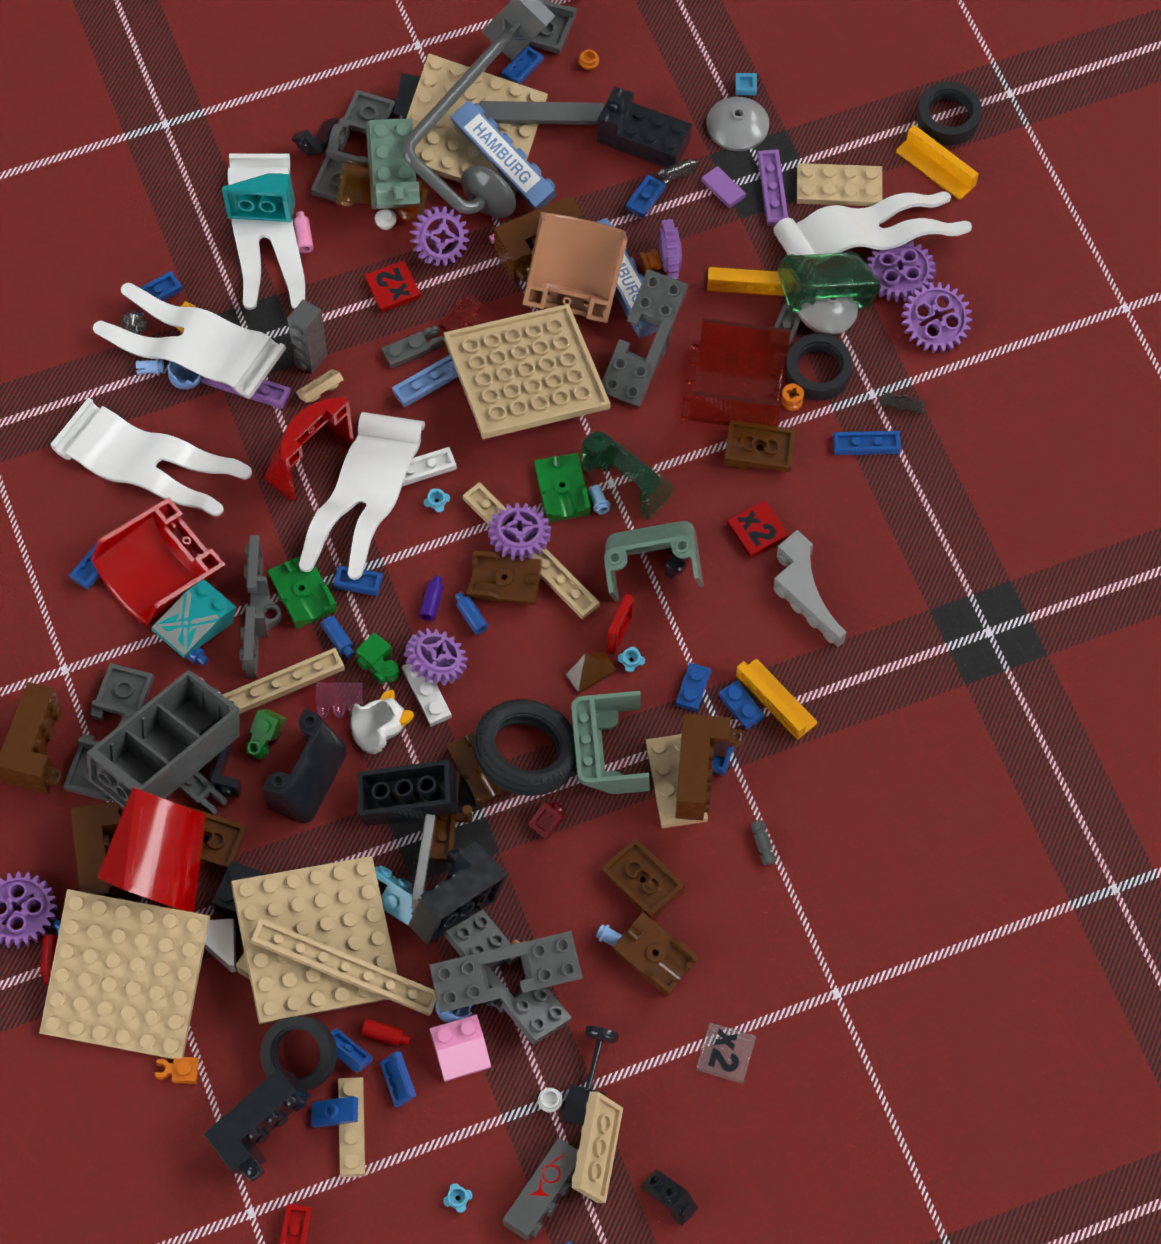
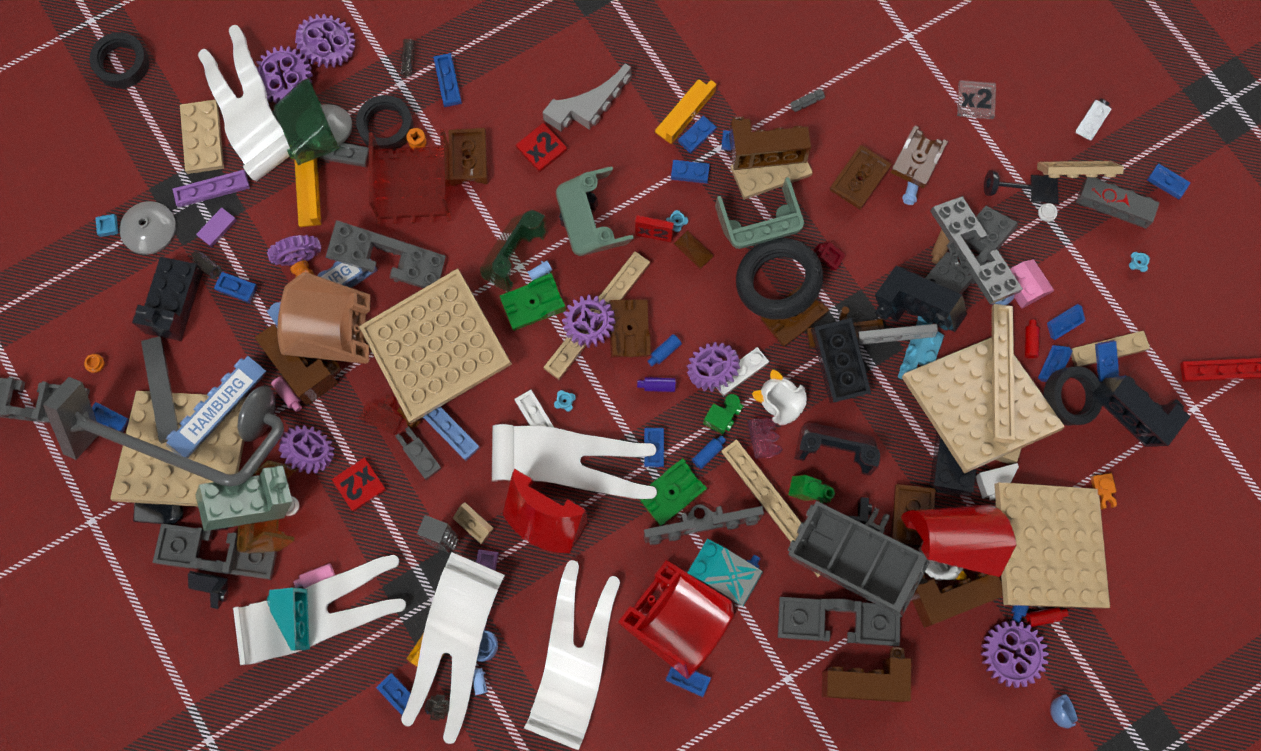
camera: 100 degrees left, 10 degrees up
(938, 163) = (170, 63): light orange panel -> none

